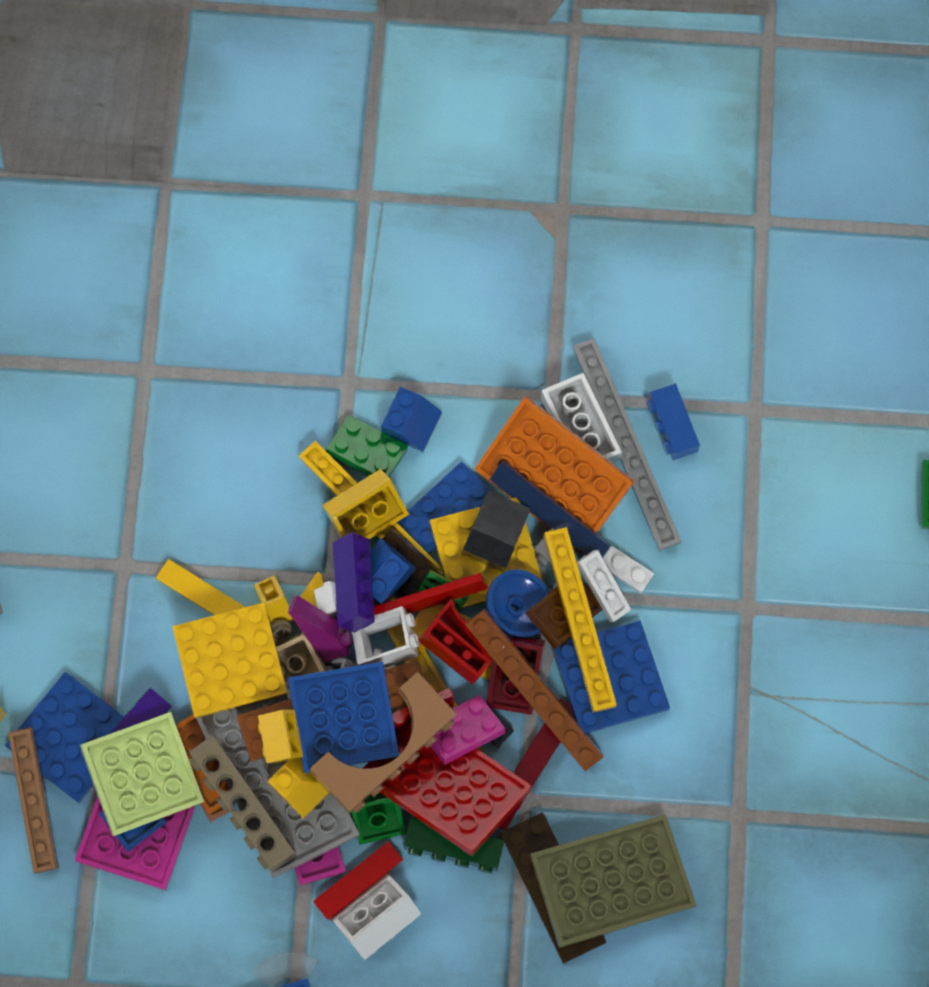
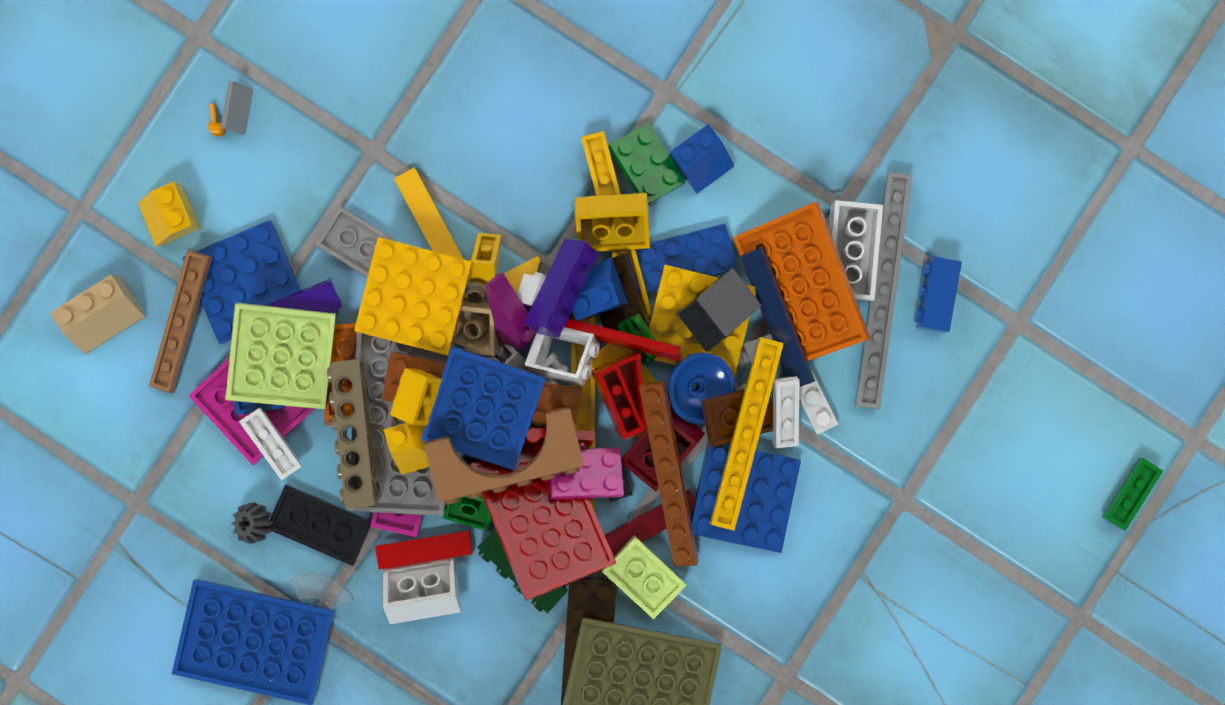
camera: 25 degrees right, 15 degrees up
(148, 651) = (351, 240): none -> light grey tile
(172, 858) = (270, 443): none -> white plate
(192, 940) = (252, 523): none -> dark grey gear
(252, 912) = (319, 525): none -> black tile
(564, 793) = (644, 577): none -> yellowish green plate

